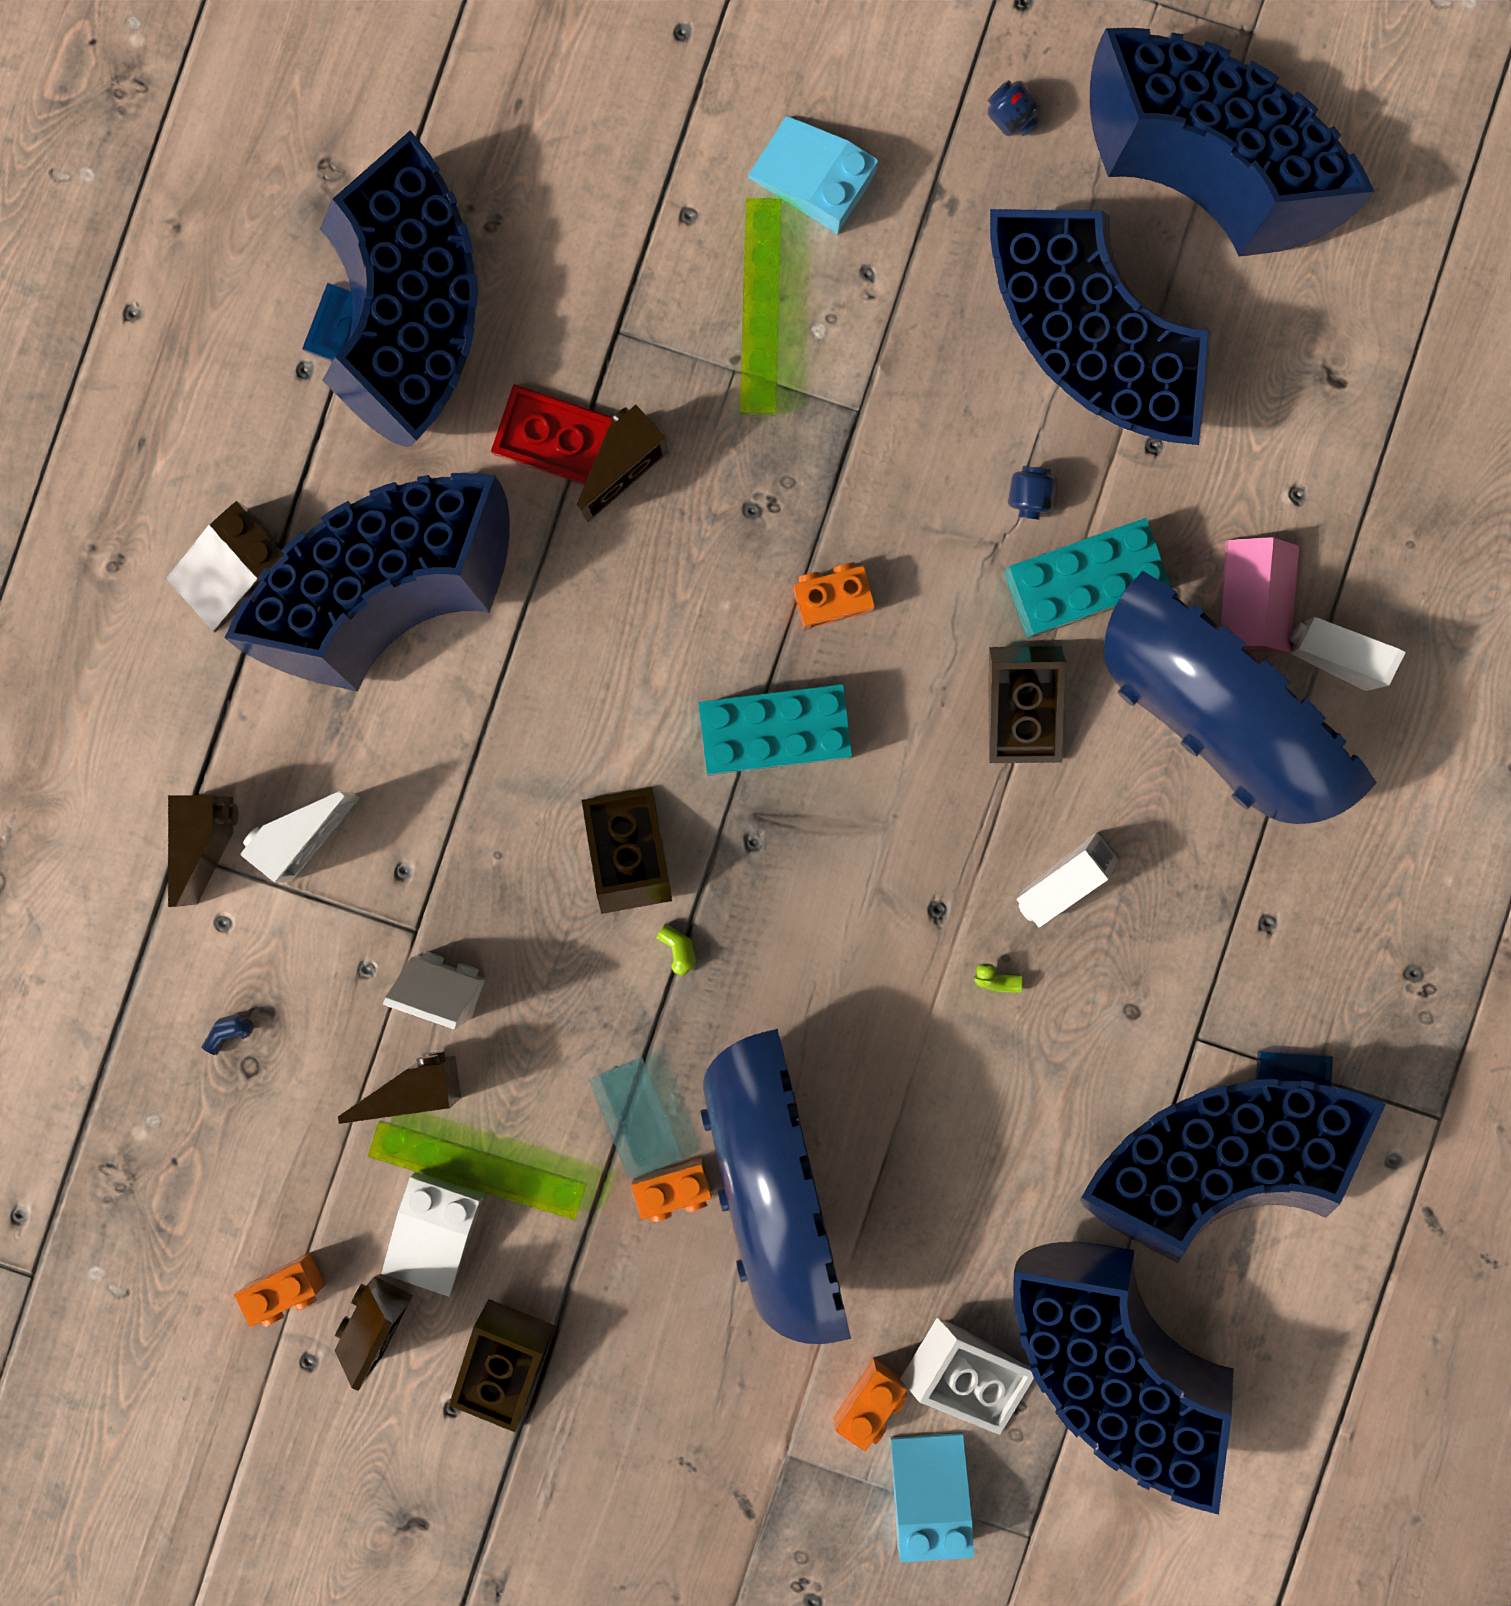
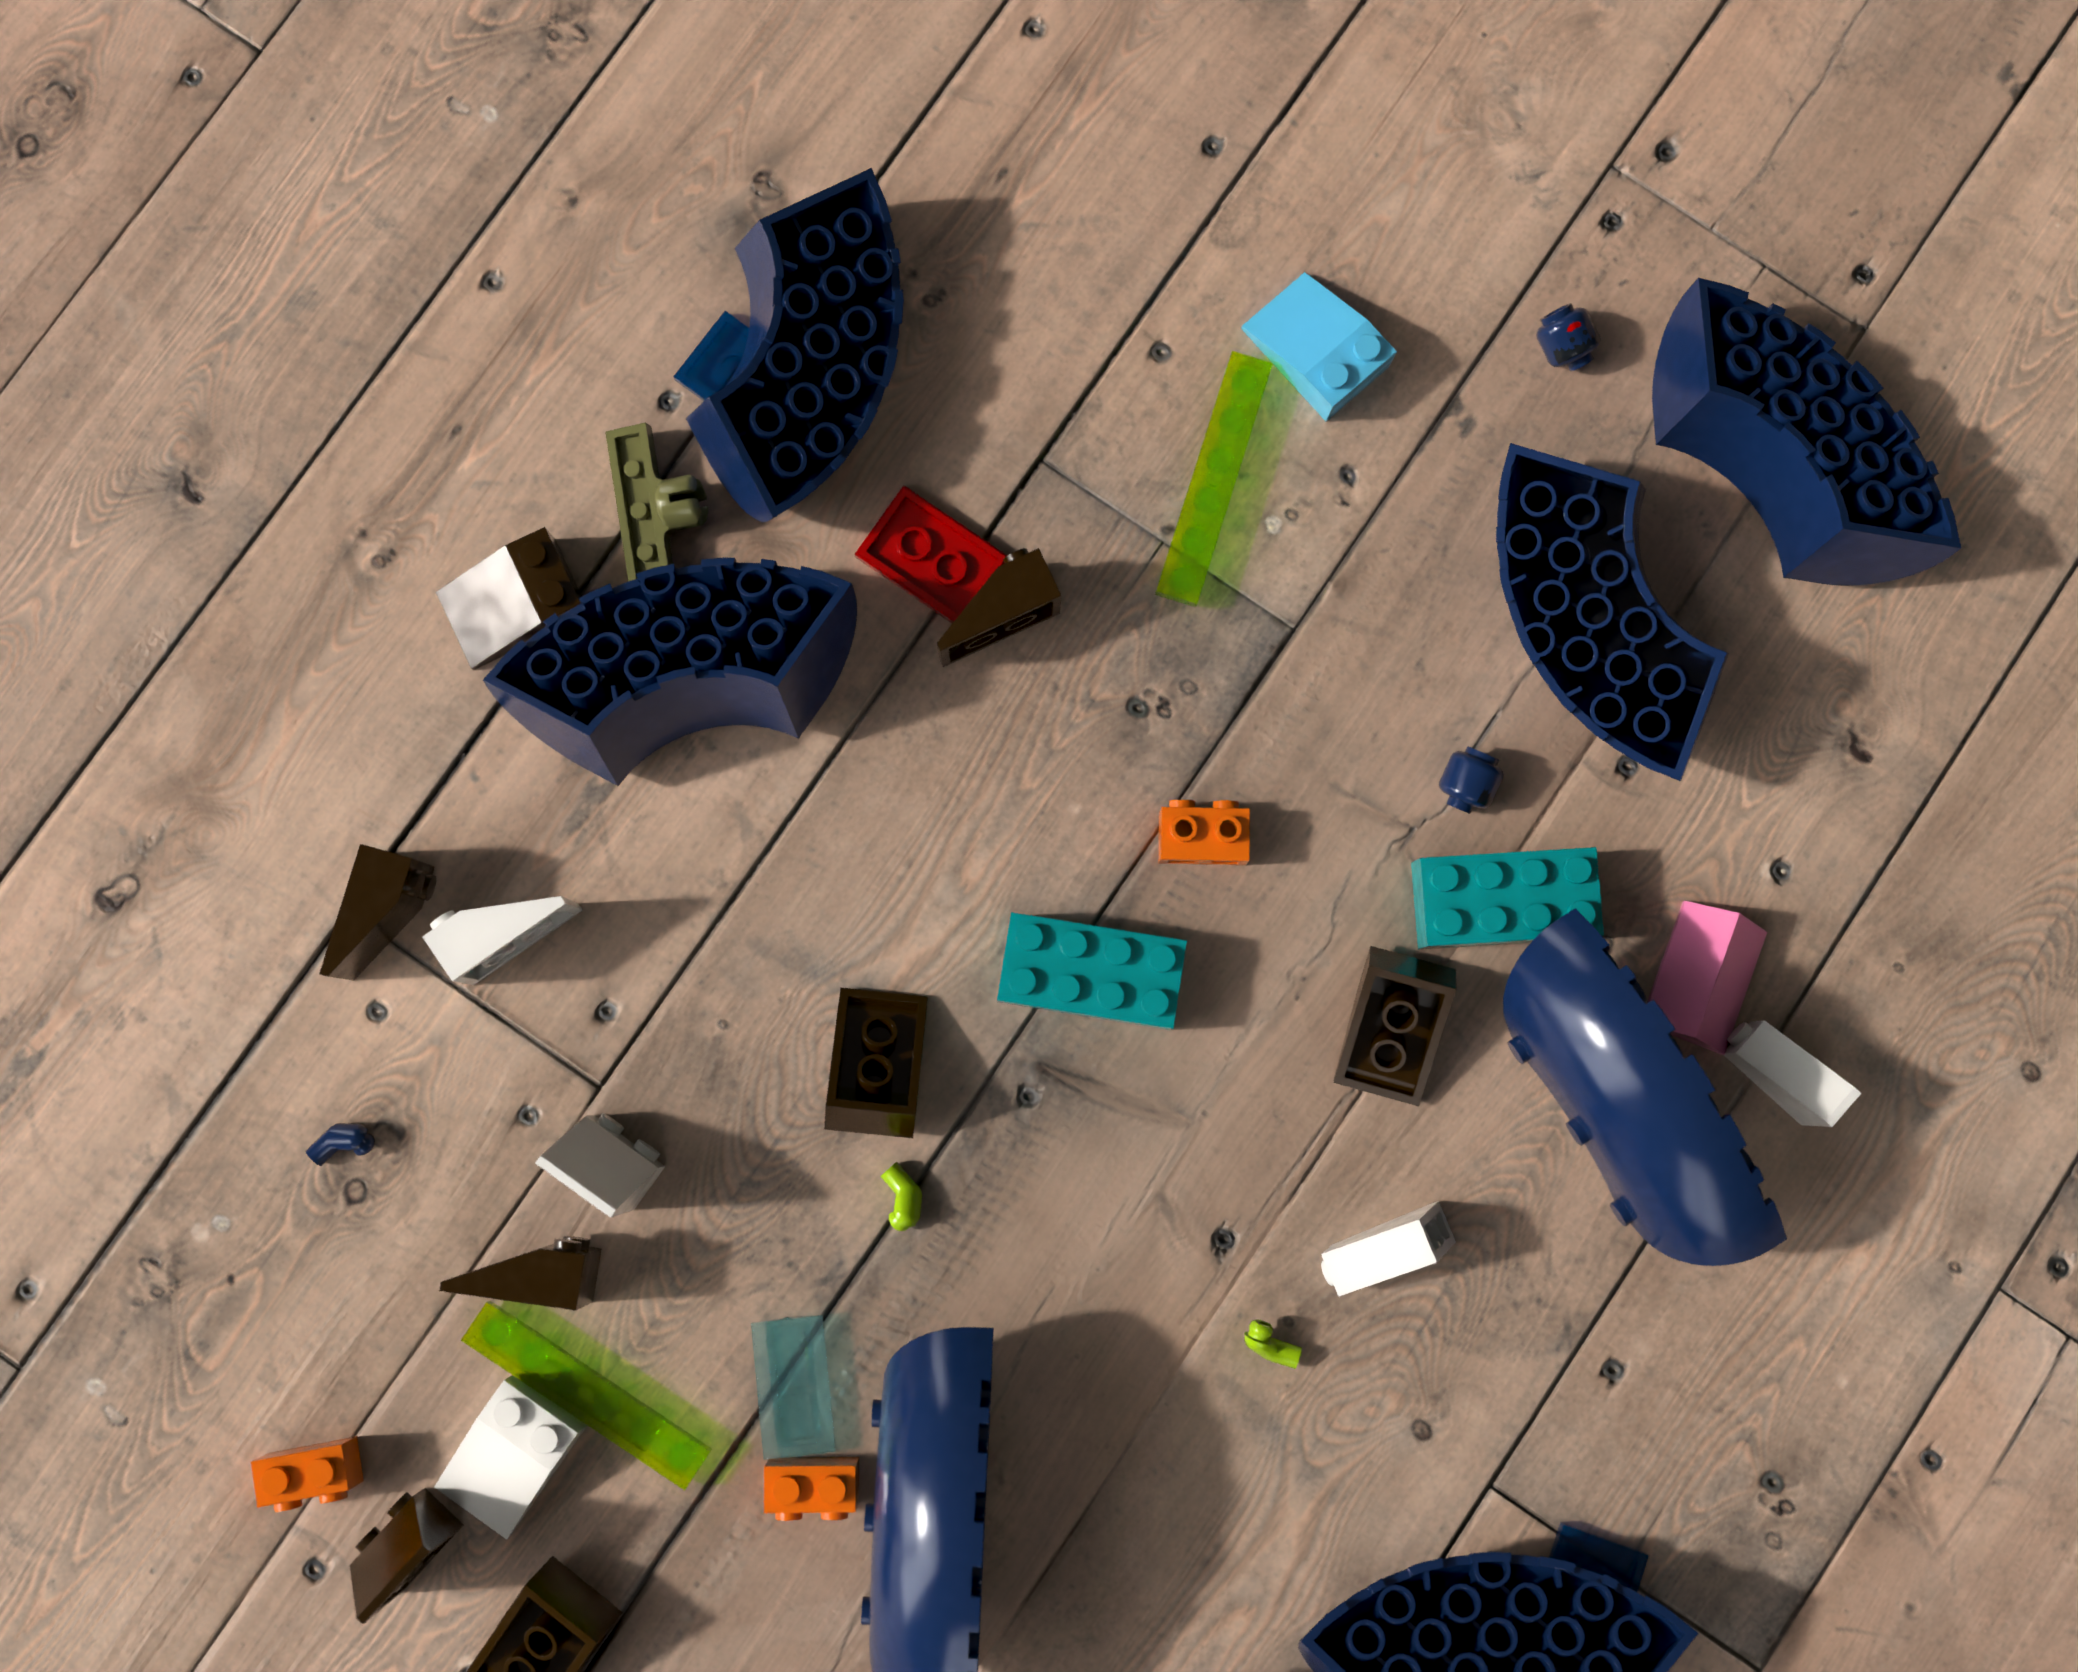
camera: 10 degrees right, 5 degrees down
(313, 458) = (645, 503): none -> olive plate

